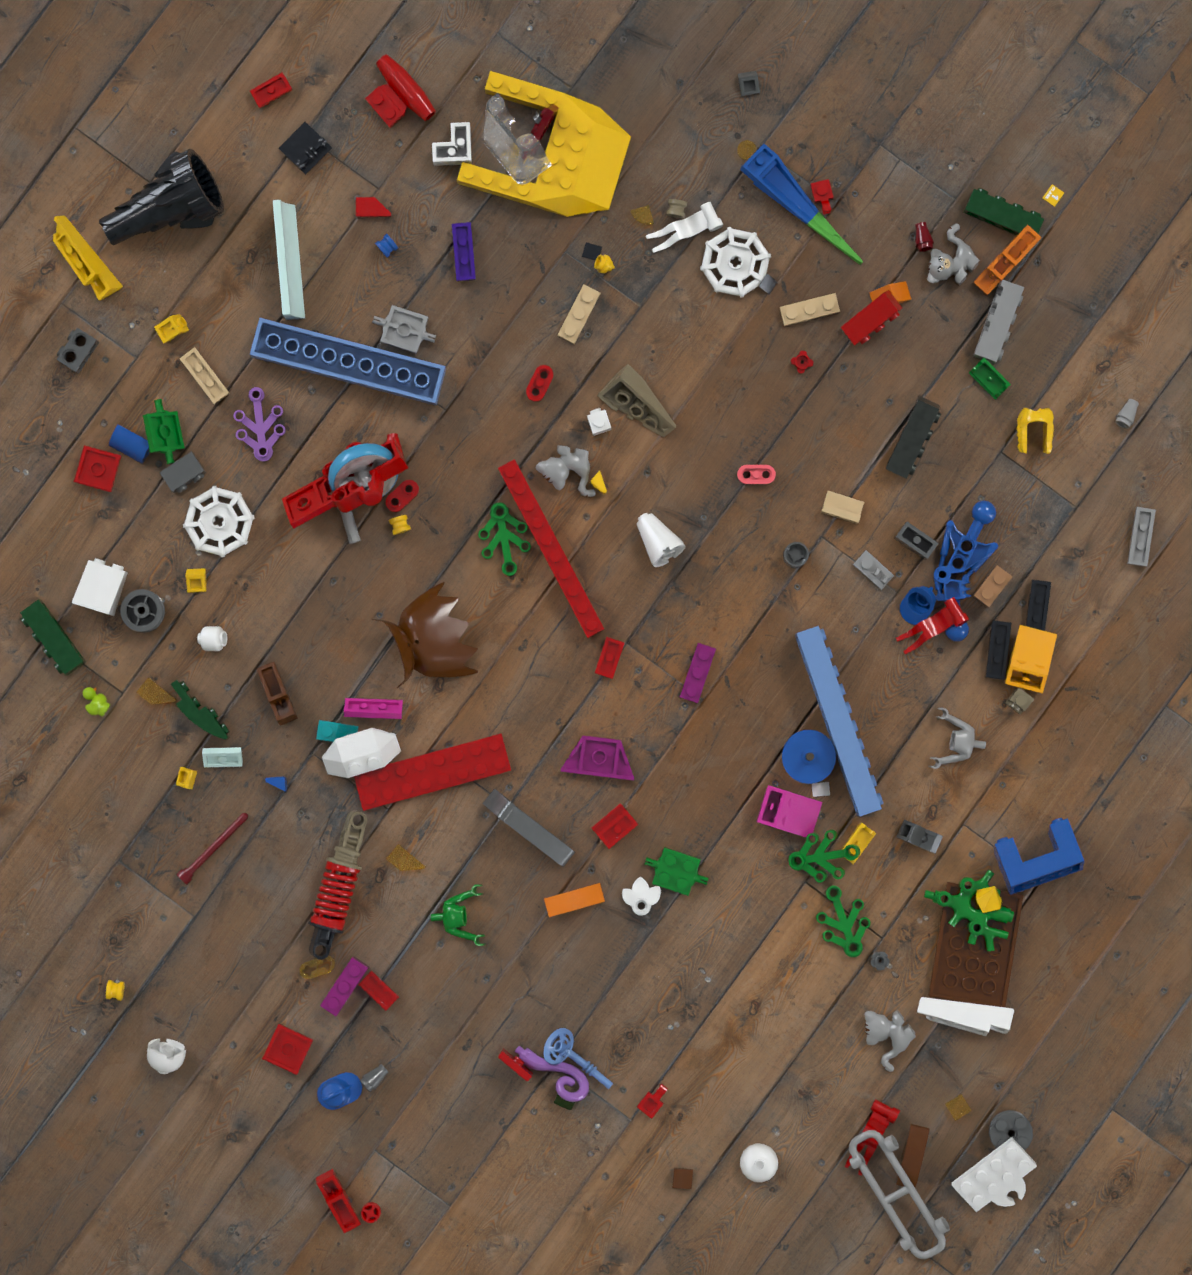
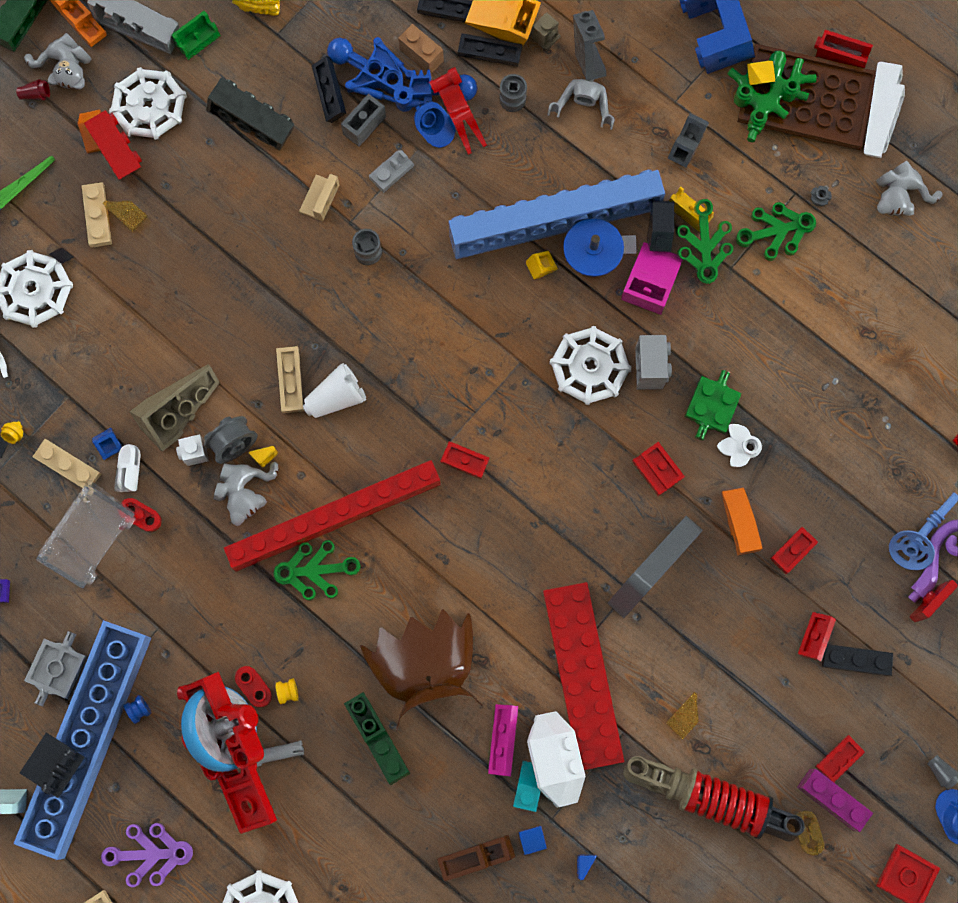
camera: 90 degrees left, 10 degrees down
(294, 738) = (532, 840): none -> blue slope
(323, 340) = (52, 765): none -> black hinge
(366, 603) = (377, 738): none -> dark green slope
(375, 401) = (137, 709): none -> blue wheel
(456, 916) = (754, 660): green piece -> none
(462, 1004) = (858, 660): none -> black plate
(479, 968) = (816, 636): none -> red plate
(518, 339) = (85, 534): none -> clear windscreen
(552, 946) = (794, 550): none -> red plate
(578, 368) = (127, 469): none -> white arm
(599, 758) = (579, 481): magenta wing -> none
(601, 346) = (107, 443): none -> blue slope
(609, 454) = (230, 439): none -> dark grey wheel
(669, 499) = (290, 379): none -> tan plate
(697, 672) = (489, 365): magenta plate -> none
(707, 814) = (652, 362): none -> light grey brick
(708, 771) = (586, 353): none -> white plate
(756, 474) = (272, 285): coral plate -> none
(794, 712) = (541, 264): none -> yellow slope
(807, 362) = (149, 222): red plate -> none
(812, 337) = (127, 213): none -> clear yellow tile
(833, 816) = (661, 226): none -> black slope
(920, 331) = (148, 92): none -> white plate
(946, 505) = (328, 89): none -> black plate
(954, 674) = (513, 92): none -> dark grey wheel
(1001, 740) = (586, 32): none -> dark grey panel
(1023, 976) = (842, 49): none -> red window

